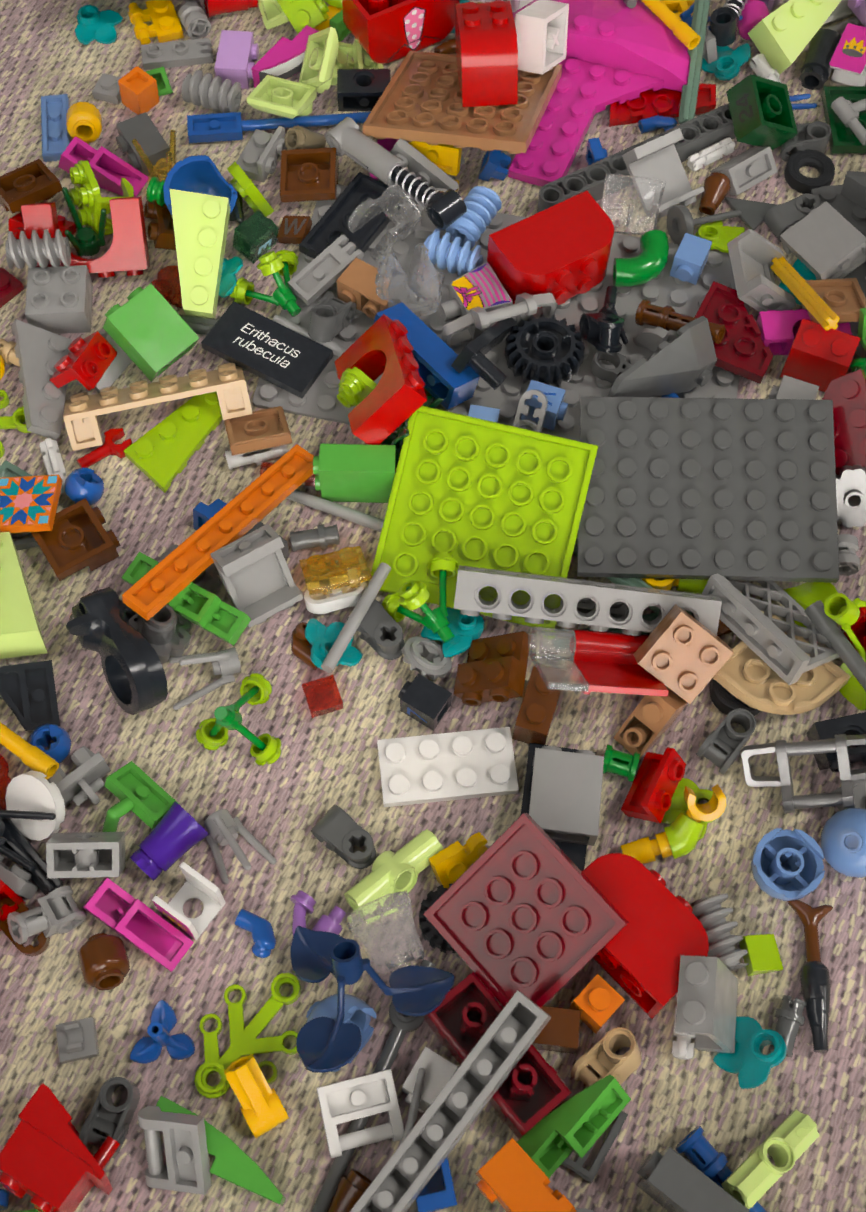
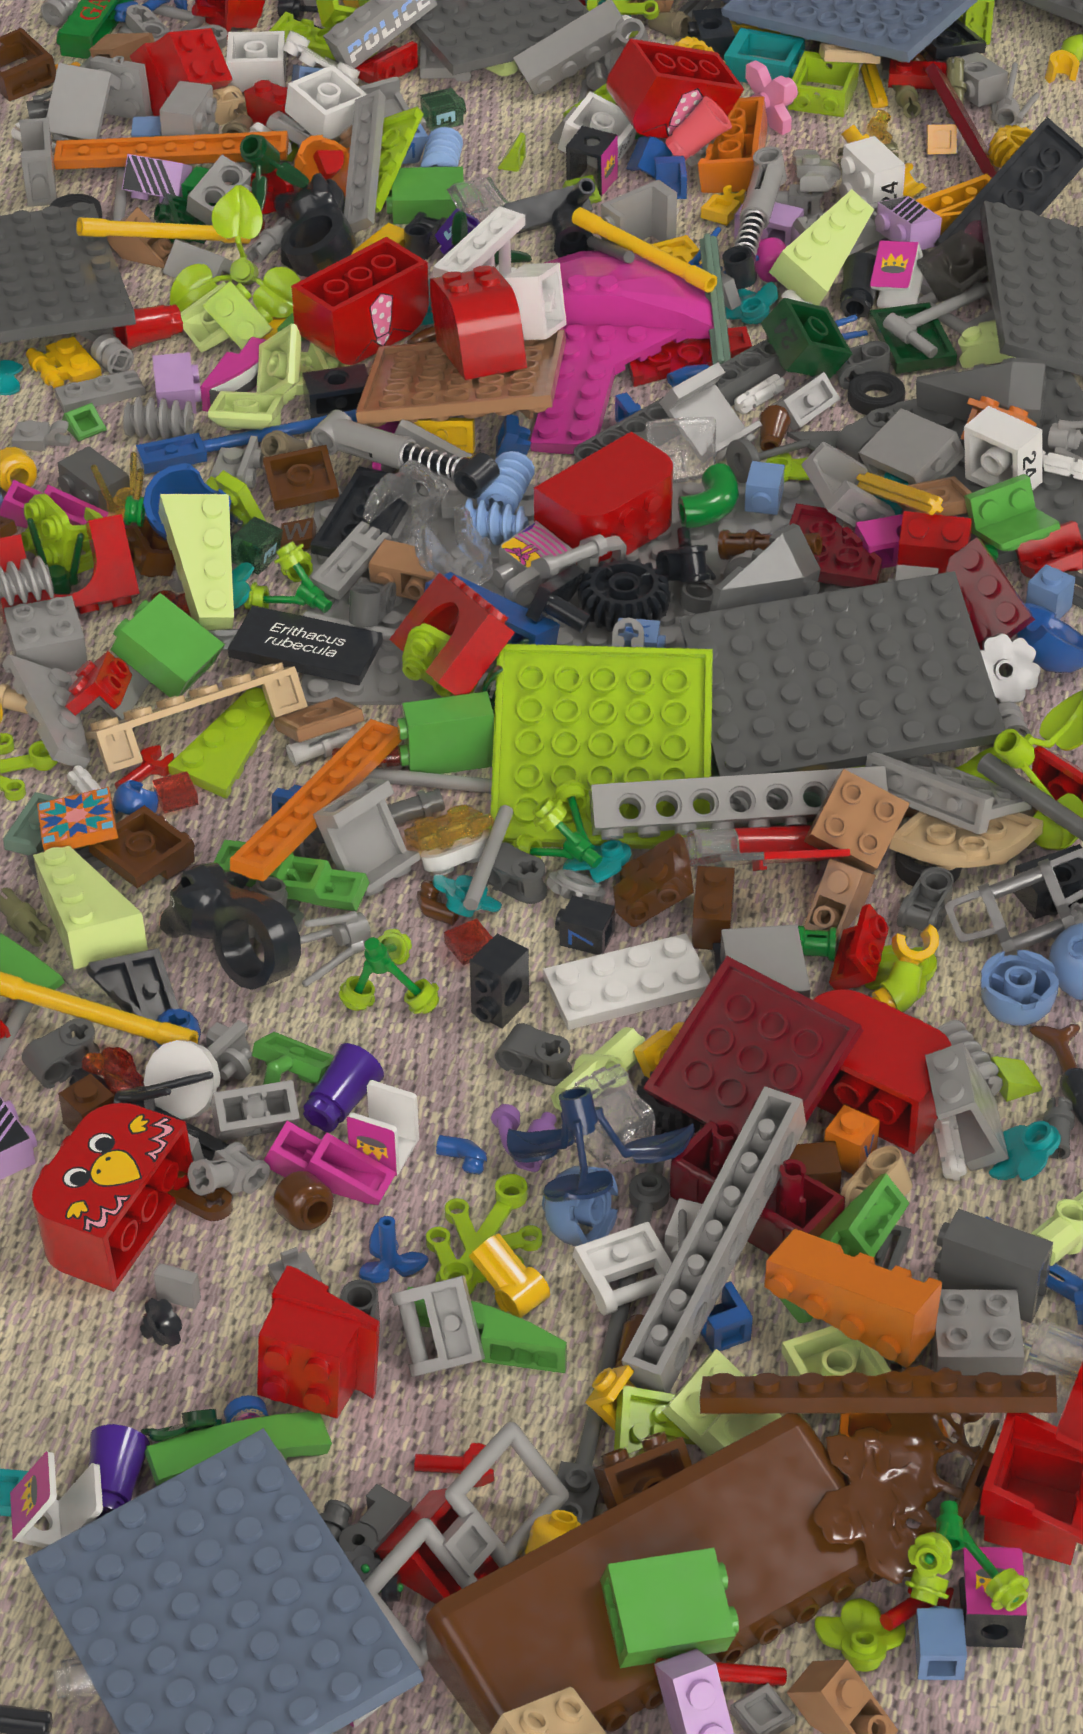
camera: 10 degrees left, 20 degrees down
(121, 481) = (175, 792): none -> clear red plate
(138, 91) = (70, 429): orange panel -> none
(224, 830) = (401, 1072): light grey plant -> none
(330, 757) = (499, 981): none -> black brick

